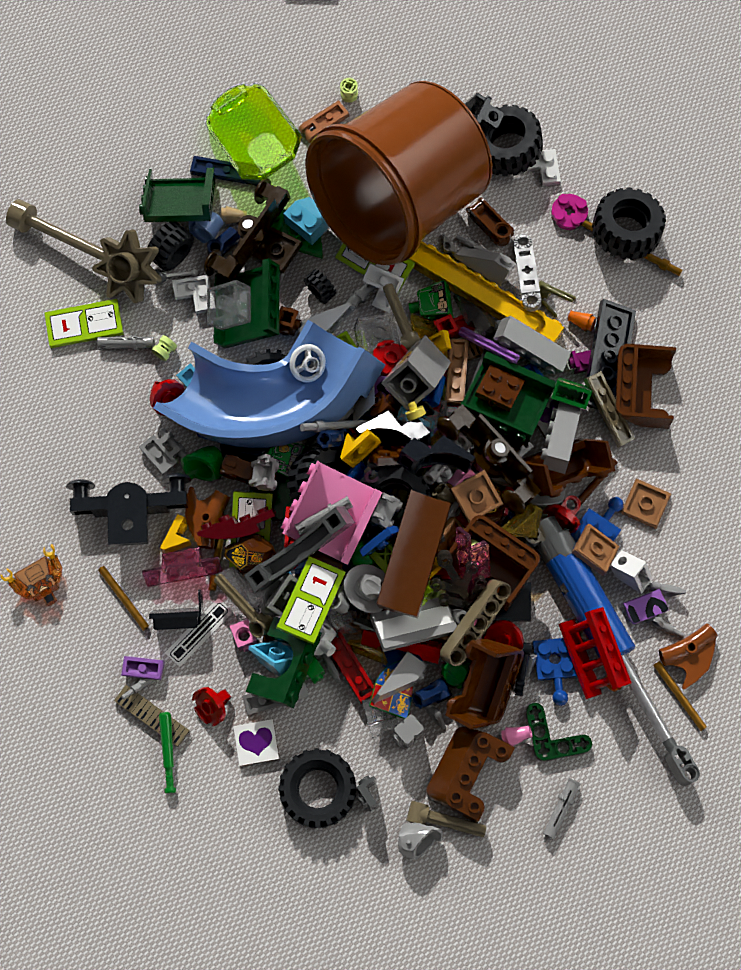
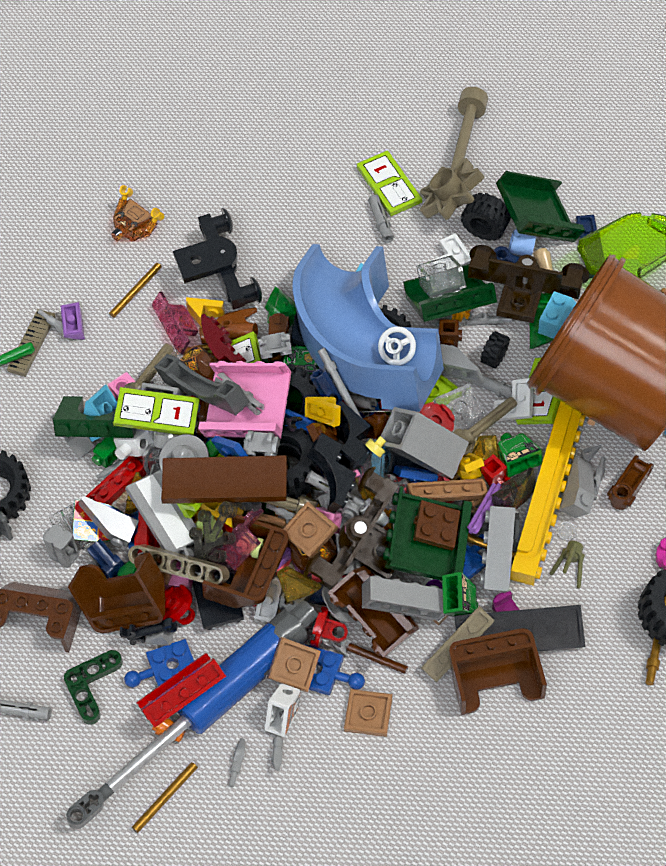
camera: 75 degrees right, 15 degrees down
(158, 454) = (279, 274): light grey plate -> none
(164, 276) = (456, 224): white hinge -> none
(164, 348) = (388, 246): yellowish green wheel -> none
(165, 392) = (338, 256): red tile -> none
(178, 618) = (124, 330): black piece -> none
(195, 637) = (116, 356): white sticker -> none
(210, 705) = (51, 382): red tile -> none
(256, 742) = (25, 430): tile -> none
(515, 735) = (82, 645): bright pink cone -> none
(528, 282) = (572, 530): piece -> none
(583, 320) = (553, 596): orange cone -> none
(645, 606) = (251, 737): slope -> none
(693, 662) = (211, 795): dark orange pin -> none

